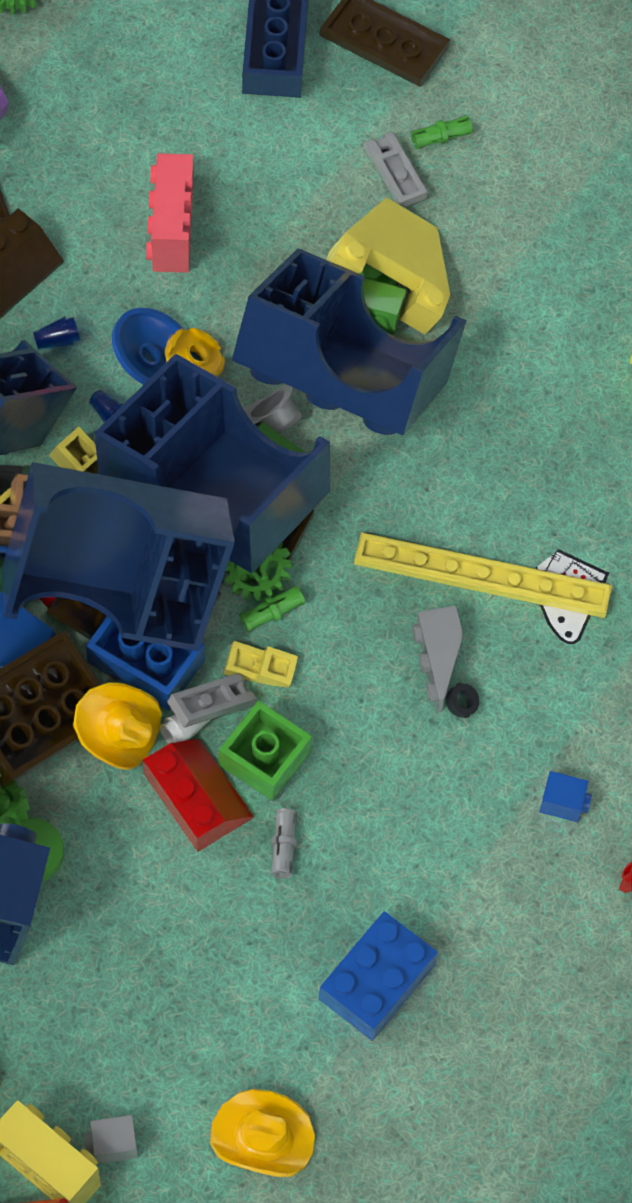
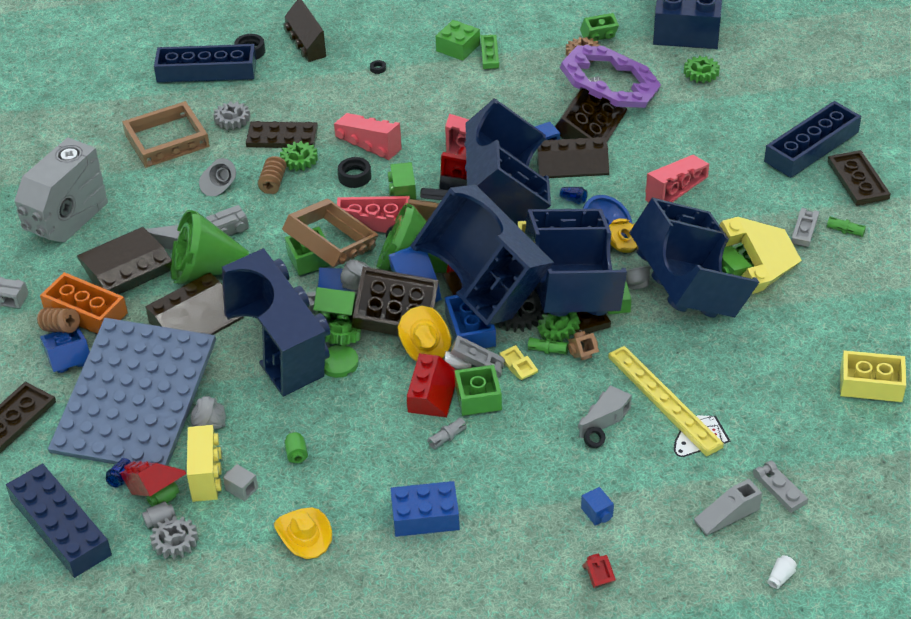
camera: 50 degrees right, 20 degrees down
(126, 1028) = (295, 447): none -> bright green brick
(321, 575) = (588, 347): none -> medium nougat brick

